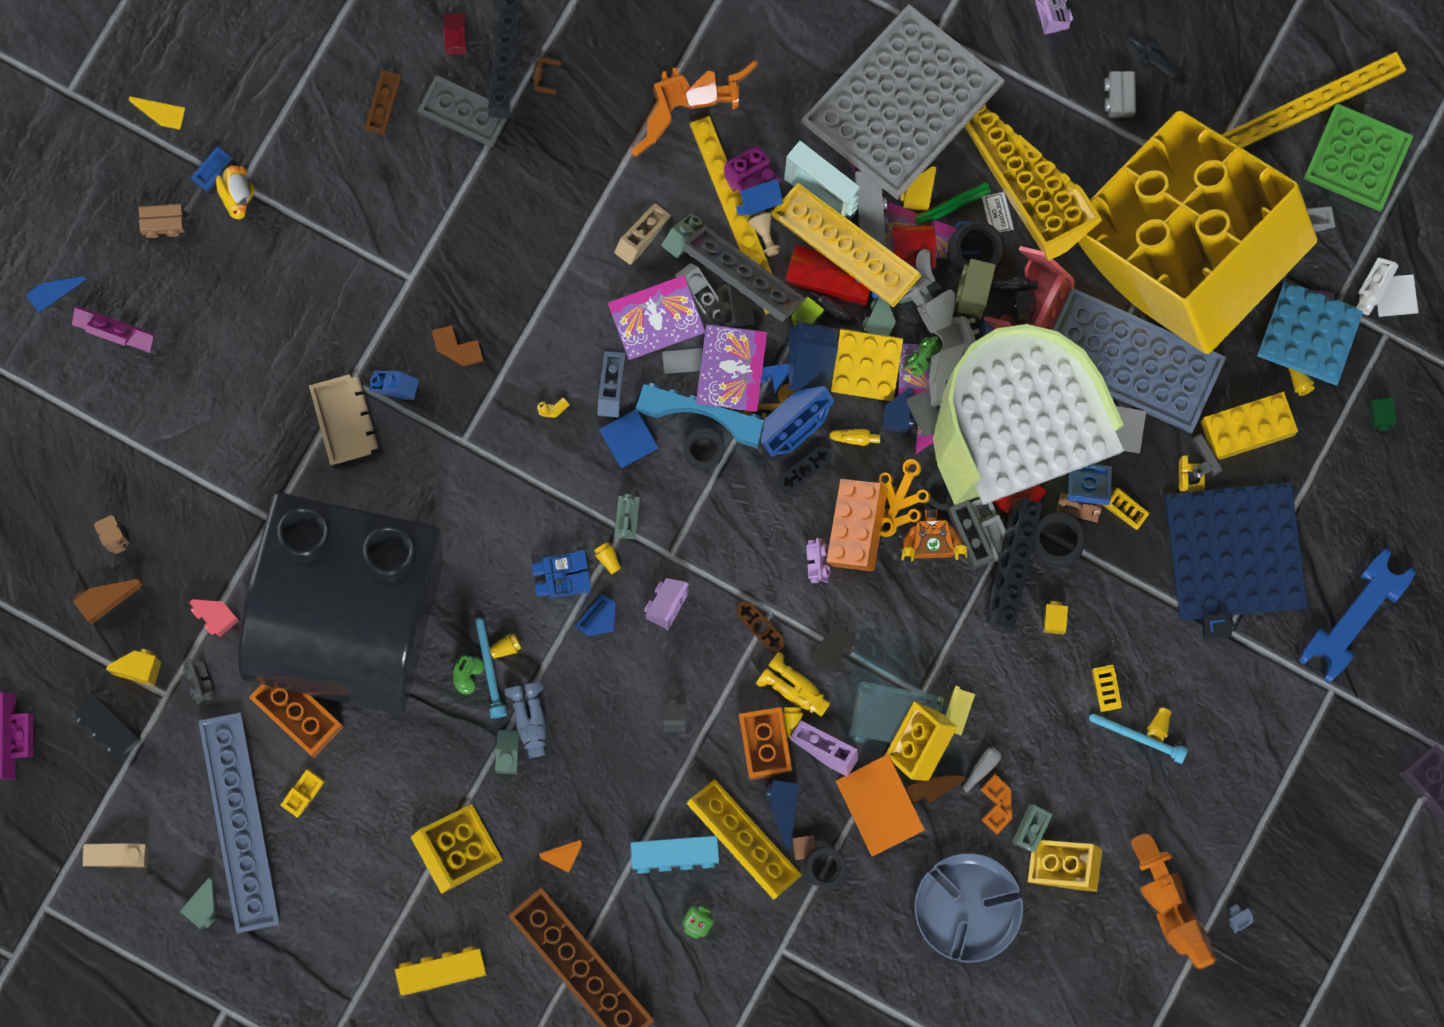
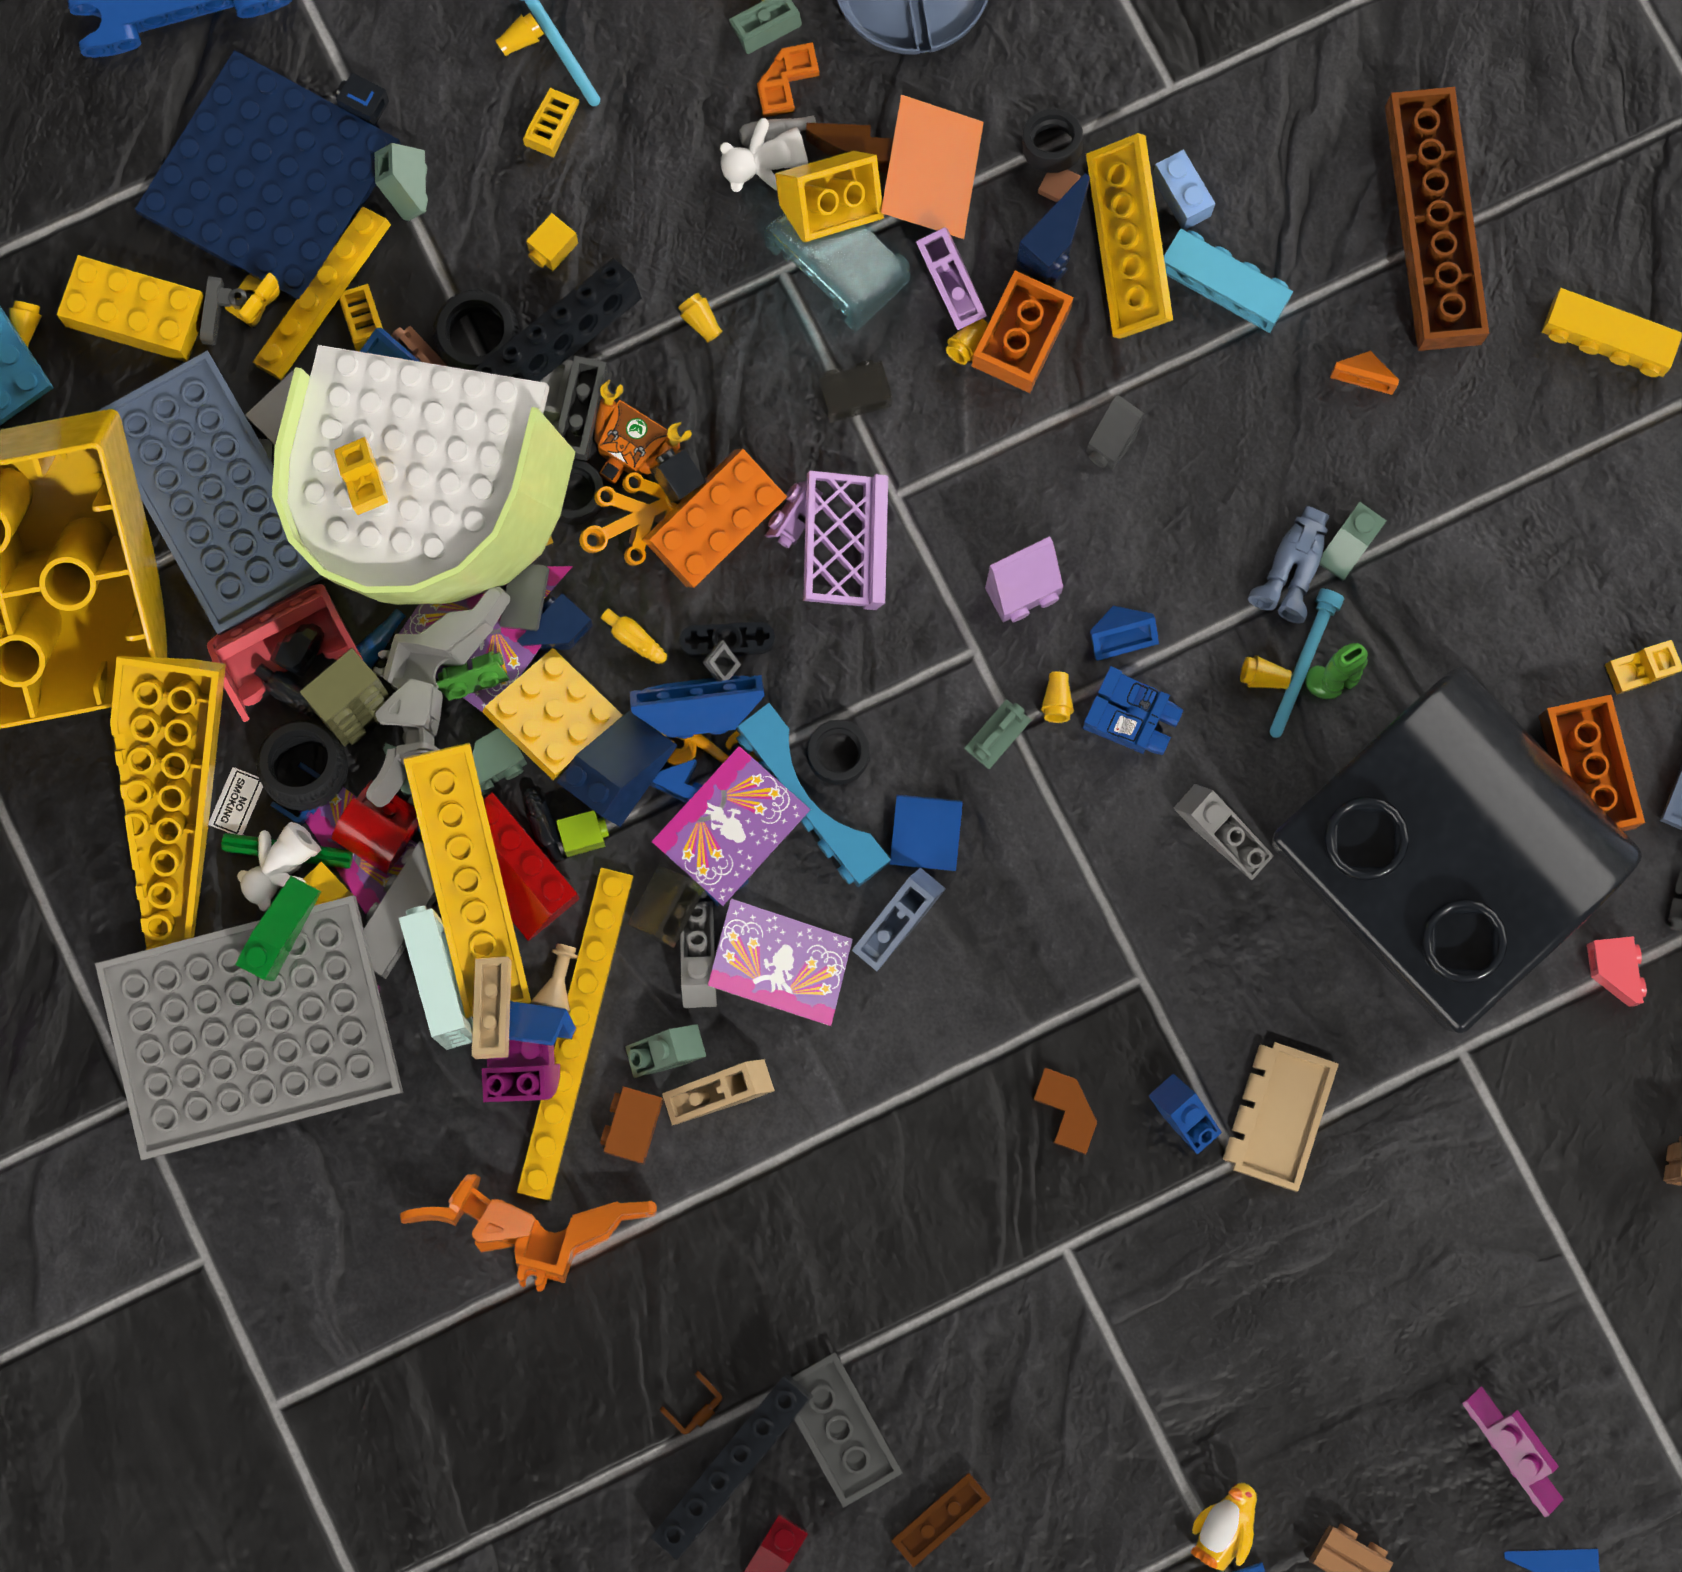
camera: 145 degrees left, 0 degrees up
(456, 848) = (1494, 466): yellow slope -> none
(474, 546) = (1223, 830): none -> light grey slope
(552, 411) = (998, 938): yellow arm -> none
(674, 187) = (632, 1125): none -> dark orange brick
(682, 360) = (783, 889): light grey sticker -> none
(698, 921) = (1253, 181): bright green head -> none
(732, 888) = (1183, 190): none -> light blue brick
(743, 273) = (627, 936): dark grey plate -> none
(744, 619) = (930, 459): reddish brown beam -> none
(763, 570) = (873, 539): none -> lavender fence
(786, 189) = (491, 1008): none -> tan plate
(798, 451) = (721, 662): none -> dark grey slope
(804, 693) = (931, 362): yellow piece -> none
(892, 531) = (677, 474): none -> black brick
(921, 152) = (278, 930): none -> green slope
(946, 633) = (700, 317): none -> yellow cone
(948, 199) = (276, 863): none -> white piece
(959, 708) = (751, 218): light yellow panel -> none
(975, 745) = (761, 158): none -> white piece
(1043, 390) = (361, 476): none -> yellow slope
(1156, 506) = (322, 293): none -> yellow plate
(1160, 596) = (401, 178): none -> sand green slope

